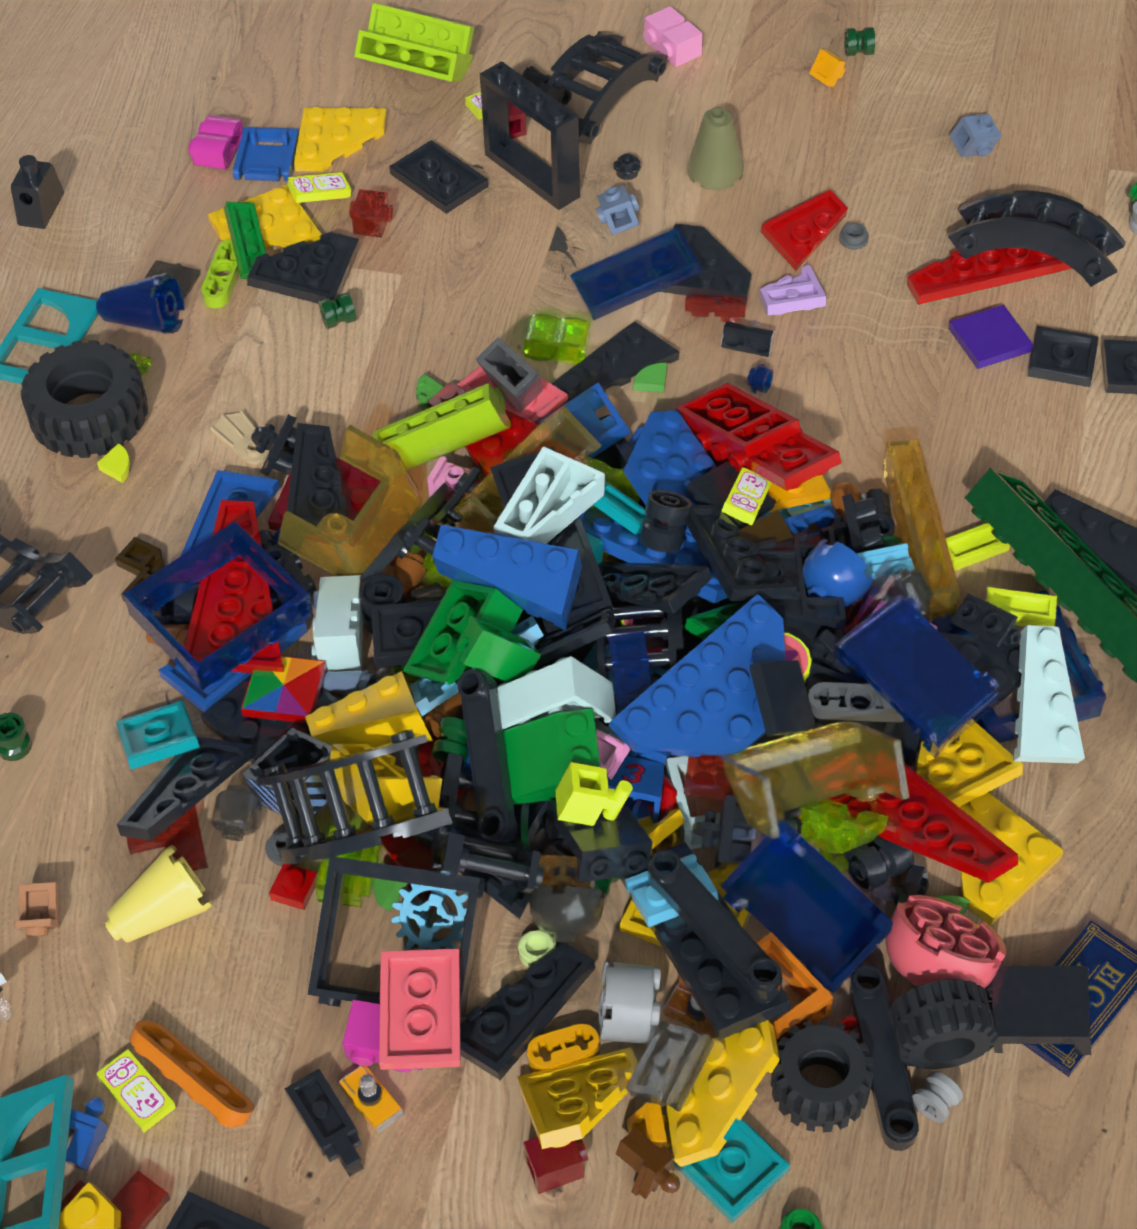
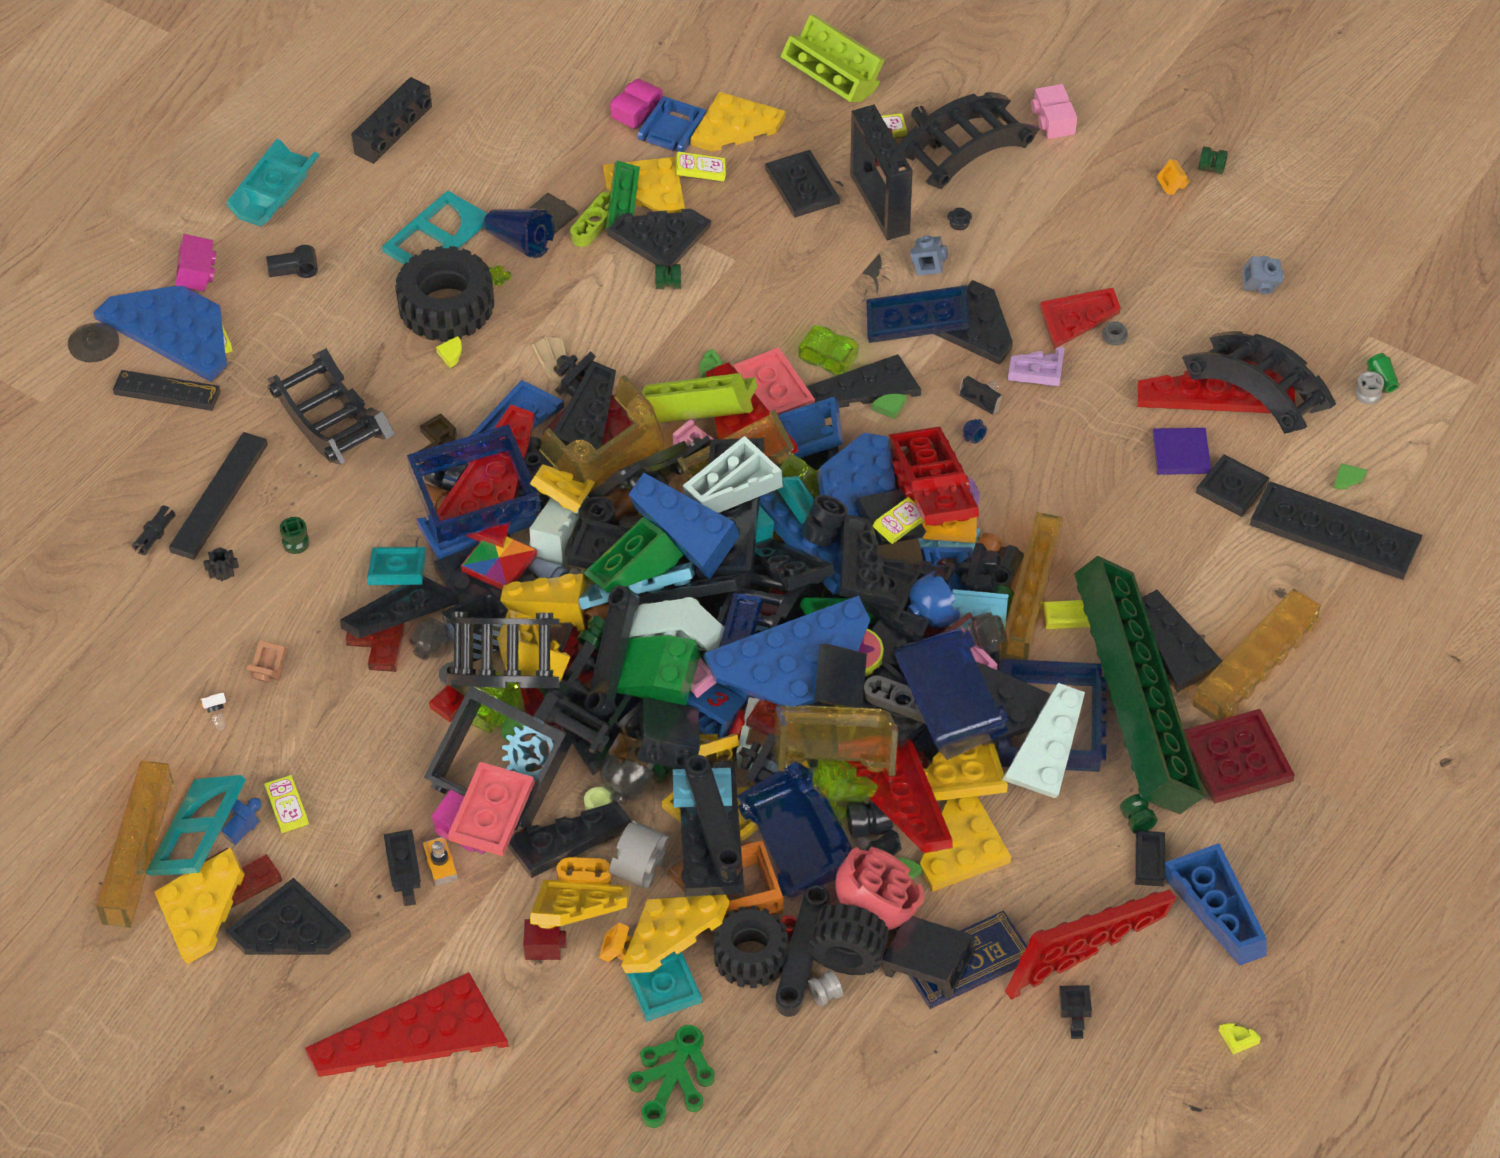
camera: 20 degrees right, 0 degrees up
(35, 192) = (475, 109): black torso -> none
(157, 899) = (351, 680): light yellow cone -> none
(191, 1073) = (326, 804): orange plate -> none
(324, 575) = (561, 487): none -> yellow wing
(370, 213) = (729, 201): clear red brick -> none
(496, 650) = (648, 577): green hinge -> none
(511, 373) = (766, 371): flat silver slope -> none
(586, 793) = (663, 699): neon yellow brick -> none
(650, 1163) = (604, 962): reddish brown piece -> none
(670, 1065) = (645, 903): clear smoke plate -> none
(716, 152) = (1034, 229): olive cone -> none
(725, 307) = (971, 363): clear red plate -> none
(986, 621) = (1033, 672): black hinge -> none
(1029, 607) = (1071, 671): neon yellow tile -> none

